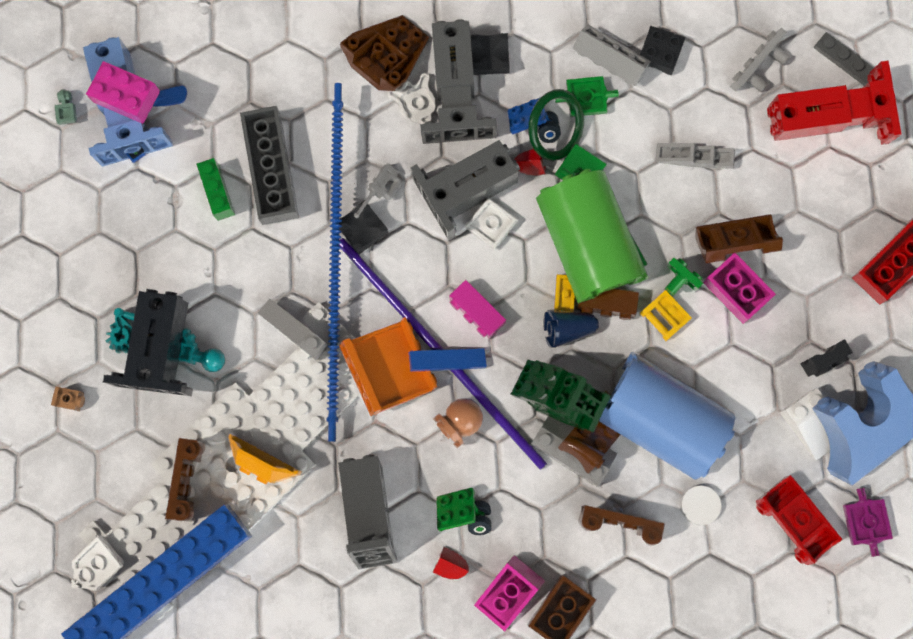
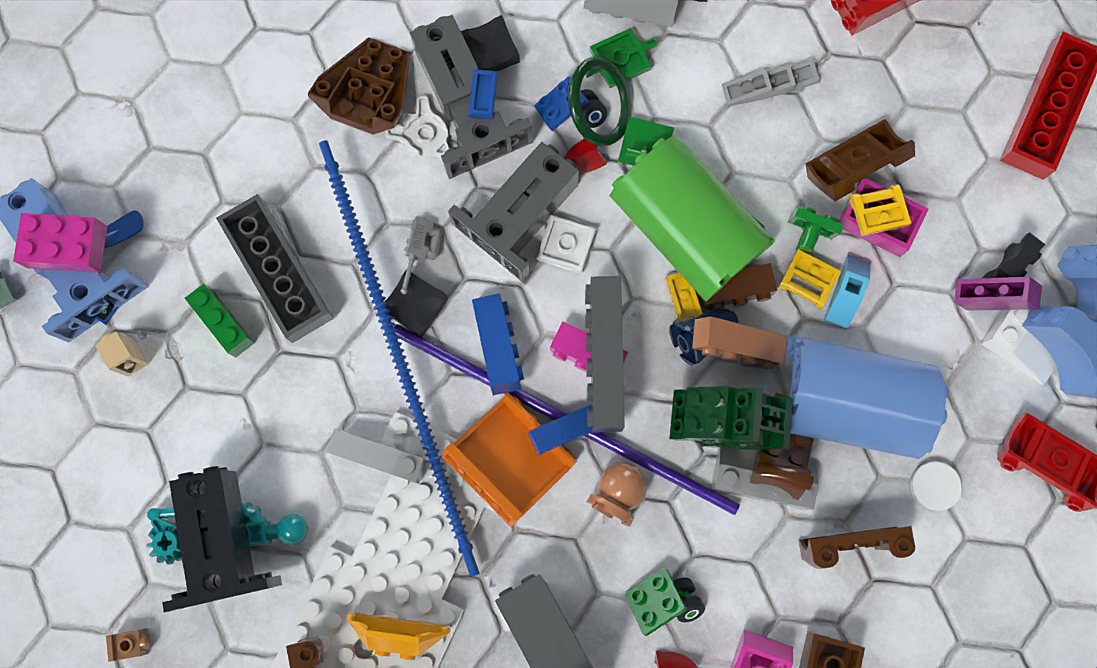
camera: 25 degrees left, 0 degrees up
(137, 188) = (121, 353): none -> tan brick
(410, 279) = (496, 344): none -> blue brick
(468, 89) = (483, 94): none -> blue tile
(487, 312) = (606, 351): none -> dark grey brick
(591, 342) = (739, 342): none -> nougat brick
(691, 335) = (848, 292): none -> medium azure slope
(733, 287) = (881, 217): none -> yellow plate
(803, 377) = (998, 294): none -> magenta brick

